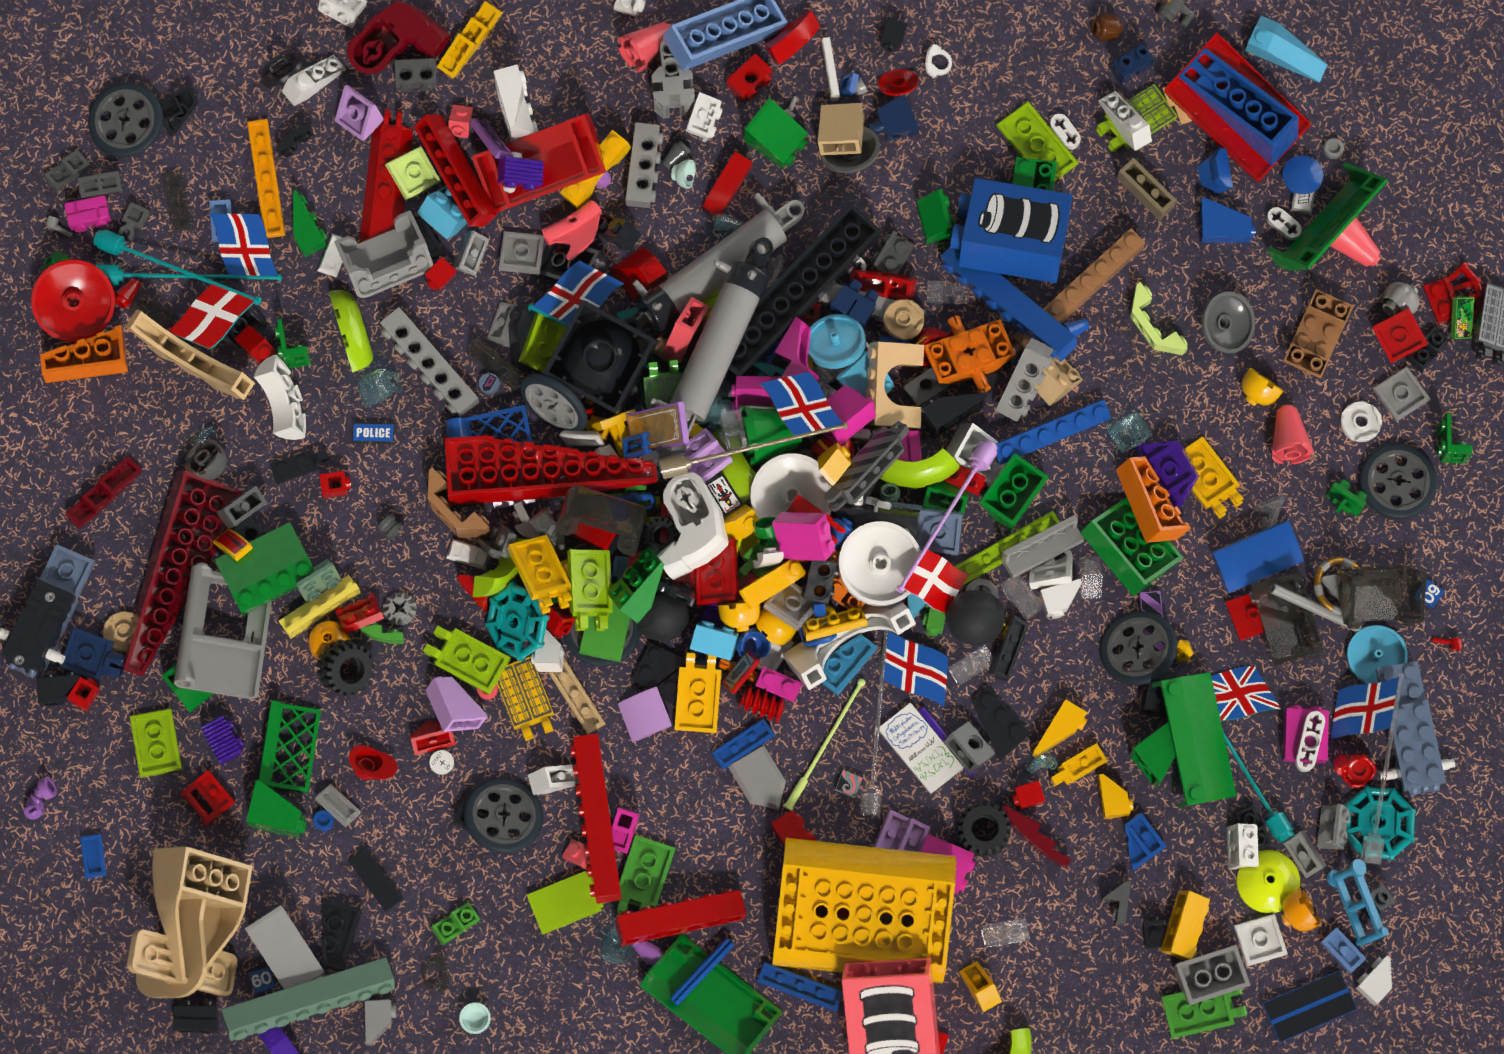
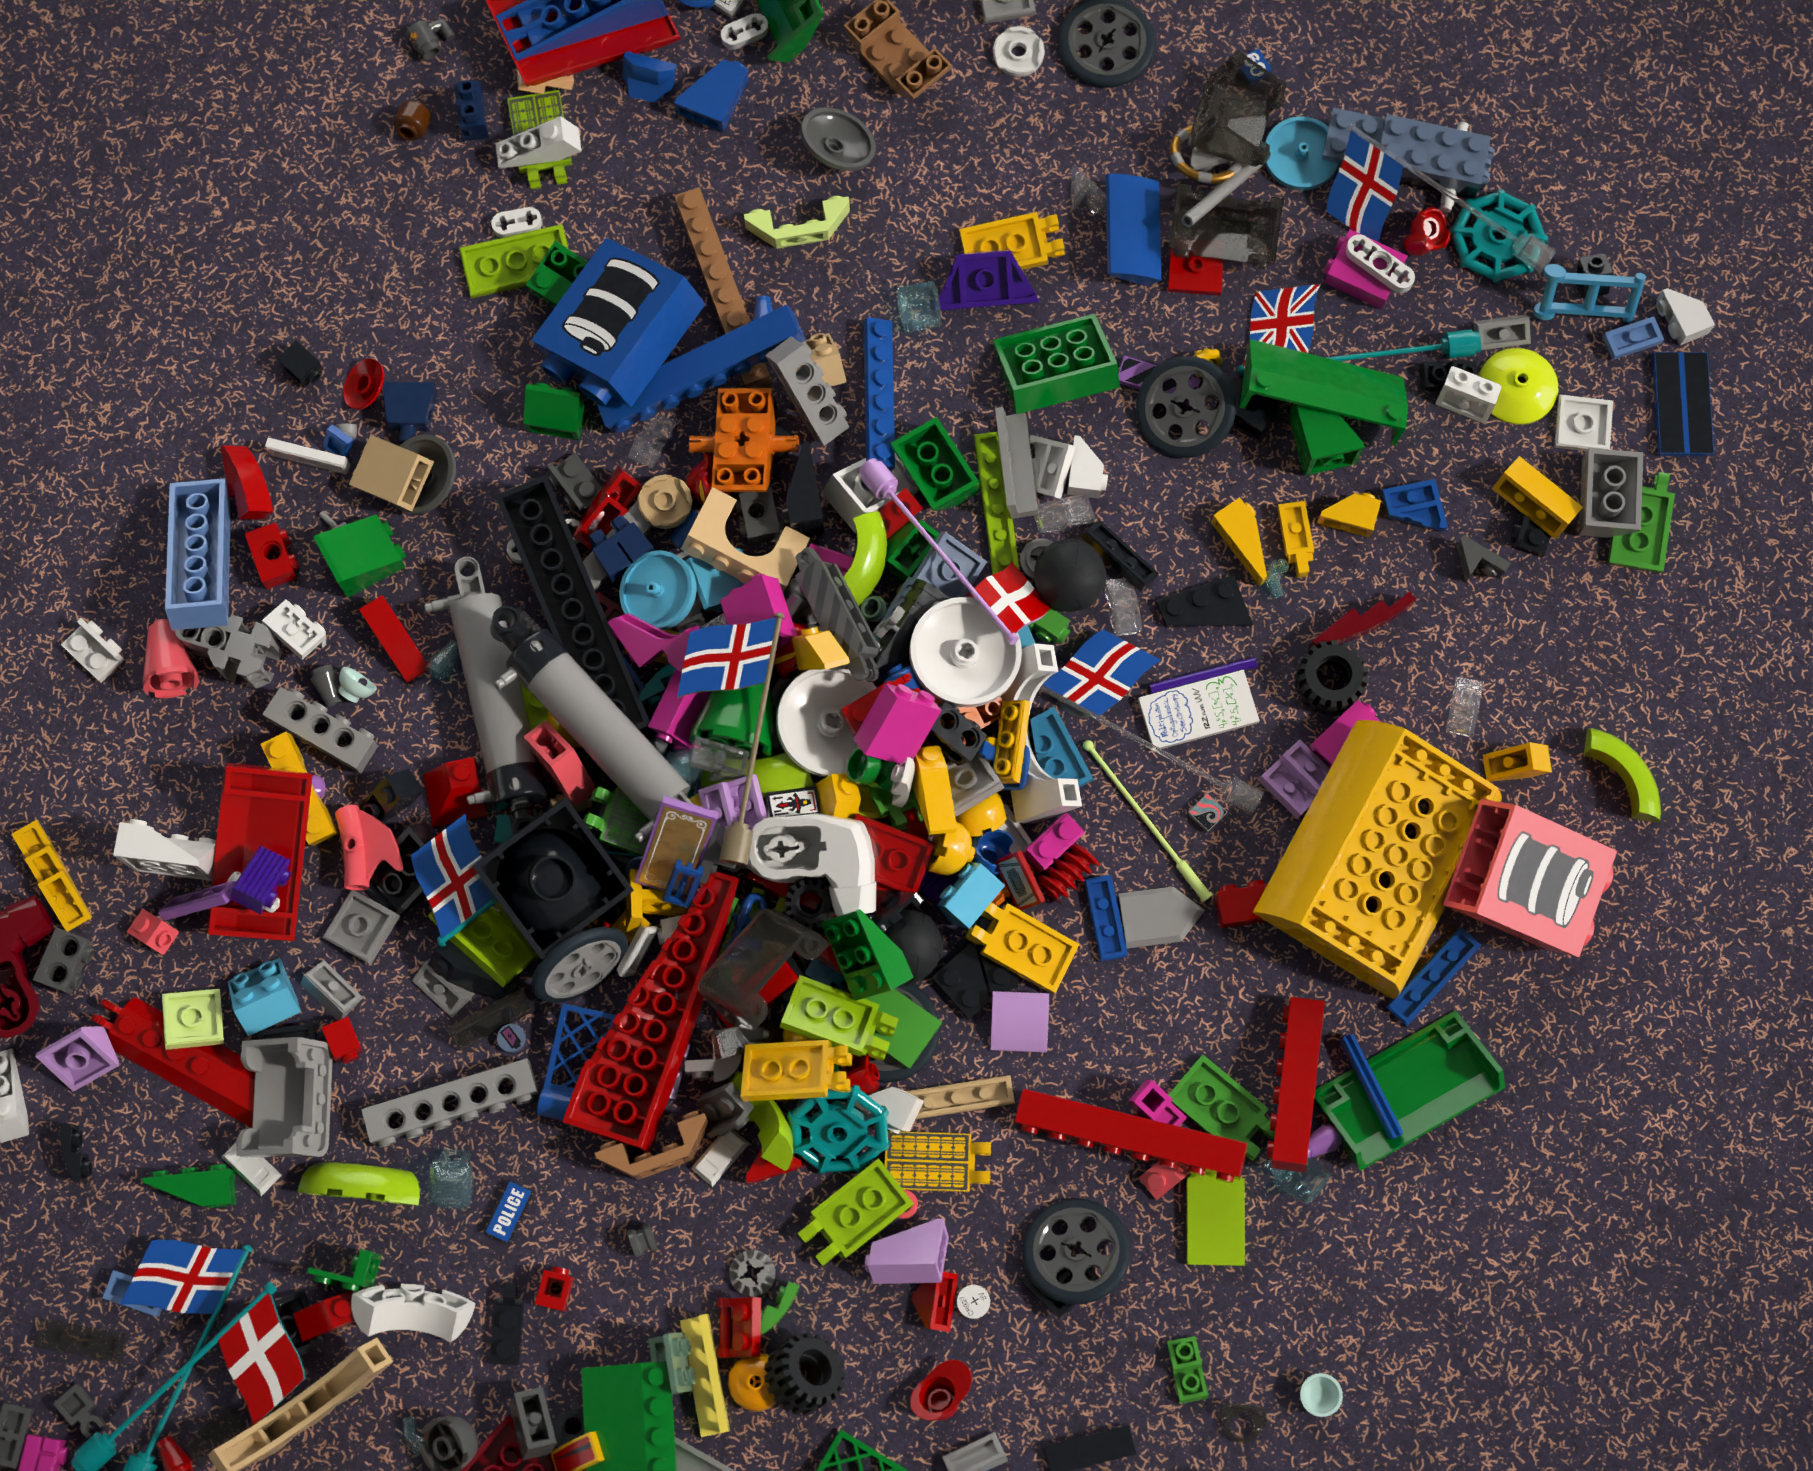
camera: 65 degrees left, 0 degrees up
(266, 178) = (106, 1211): light orange tile -> none
(455, 170) = (215, 963): red brick -> none
(552, 779) = (1055, 1170): white slope -> none
(930, 68) = (367, 339): white piece -> none
(969, 757) = (1224, 651): dark grey brick -> none
(1028, 795) = (1309, 609): red brick -> none
(1091, 577) = (1070, 424): clear slope -> none
(1146, 189) = (633, 159): dark tan brick -> none
(1150, 502) = (1014, 318): orange wedge -> none
(1259, 389) = (932, 140): yellow cylinder -> none
(1290, 437) = (1004, 131): coral cone -> none
(1299, 911) = (1572, 365): light orange cylinder -> none
(1333, 827) = (1485, 286): light grey bracket -> none
(1345, 499) = (1105, 105): green hips -> none
(1455, 643) = (1324, 64): red hand -> none

